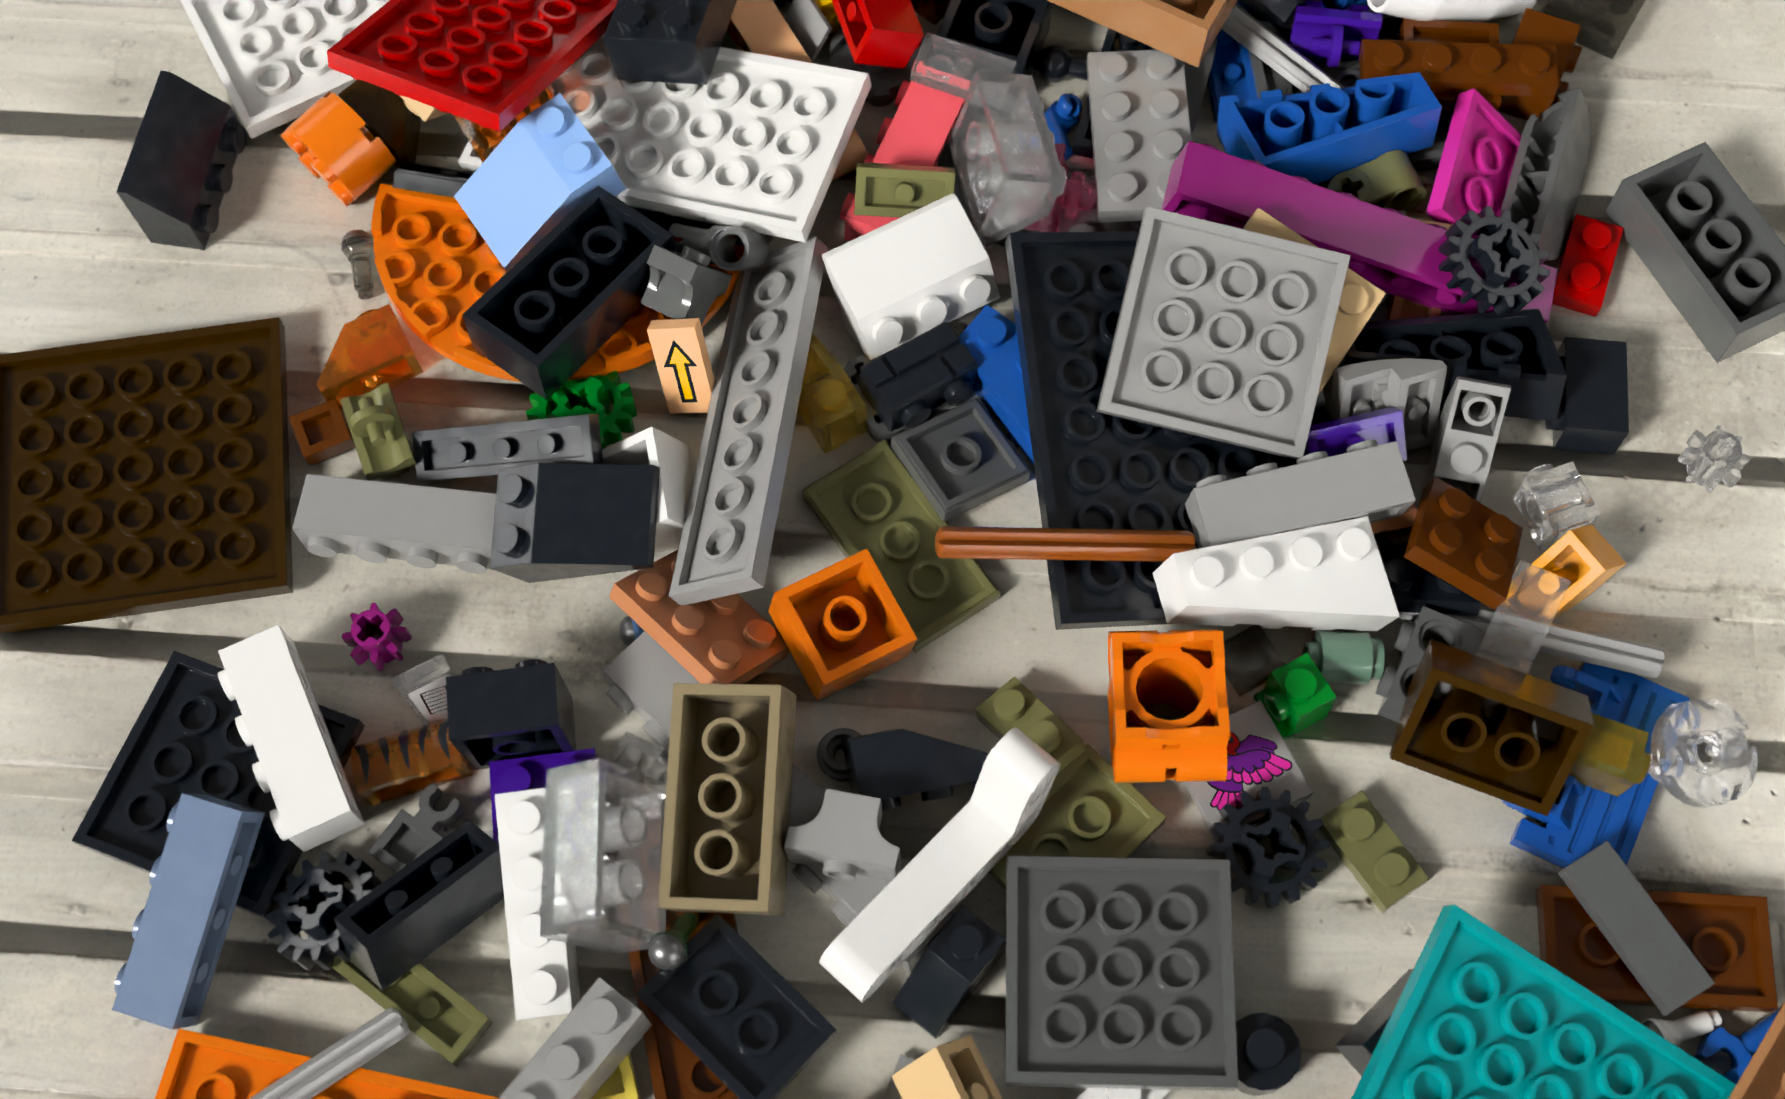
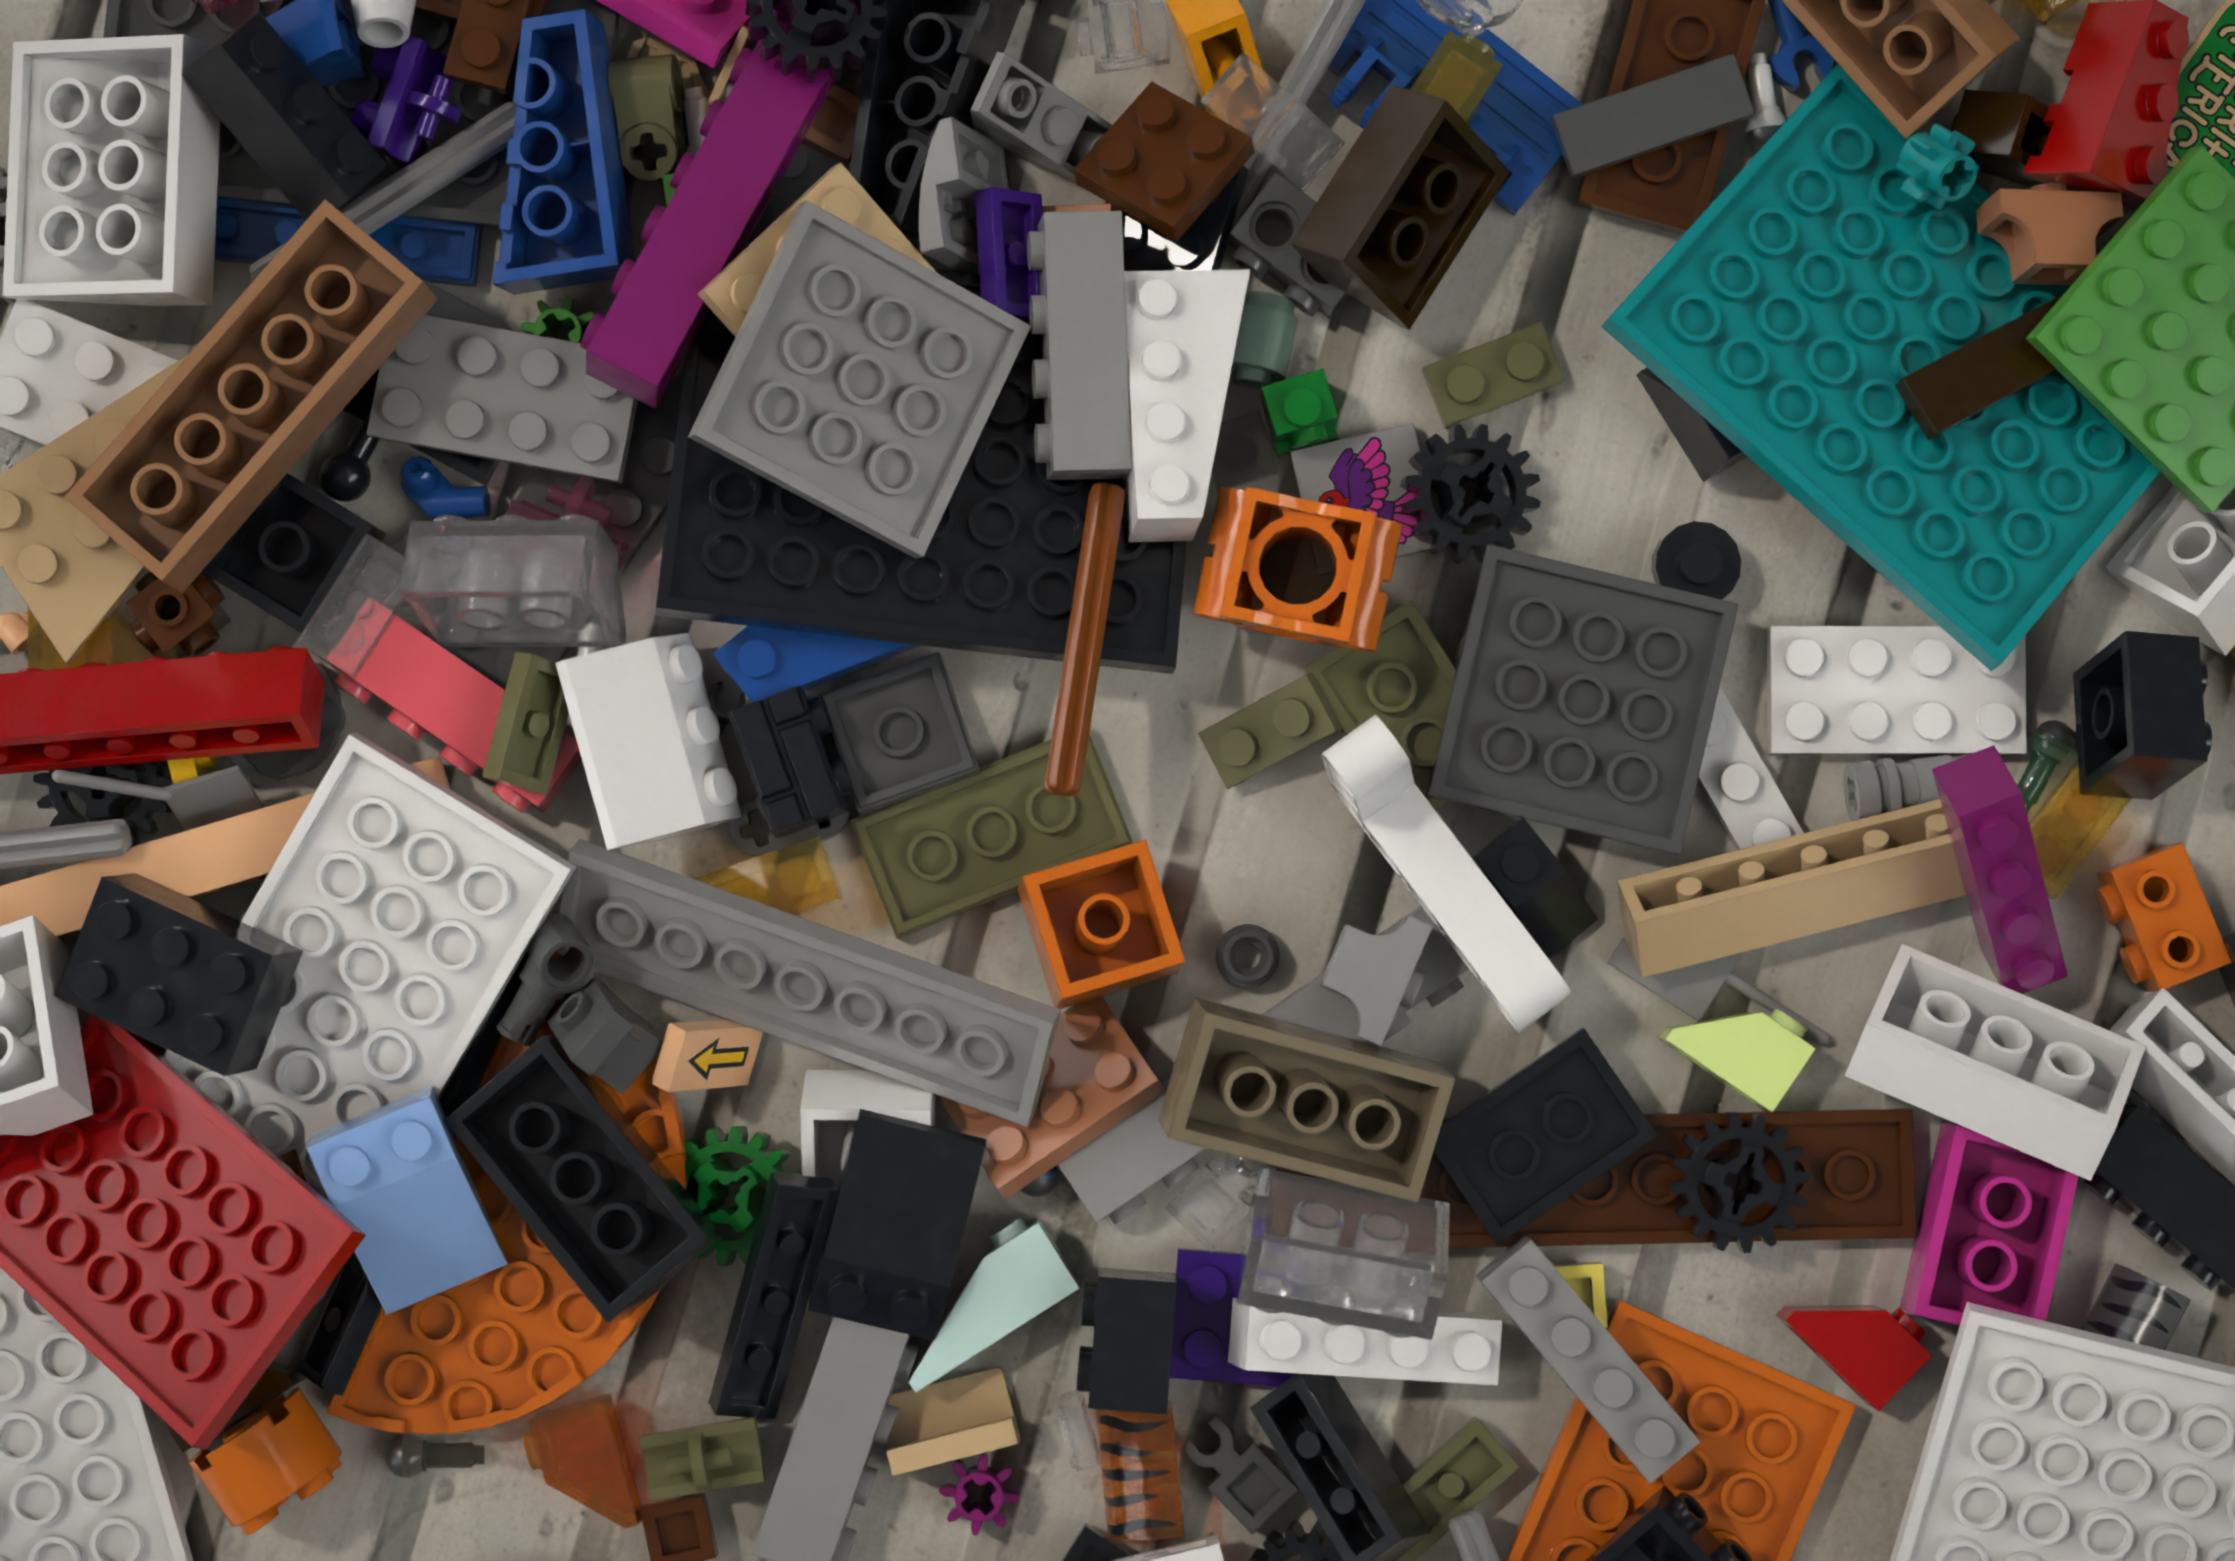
camera: 80 degrees left, 20 degrees up
(432, 607) = (951, 1421): none -> tan panel
(533, 615) = (1006, 1290): none -> light aqua slope
(669, 948) = (1460, 1198): piece -> none
(908, 763) = (1288, 887): black slope -> none

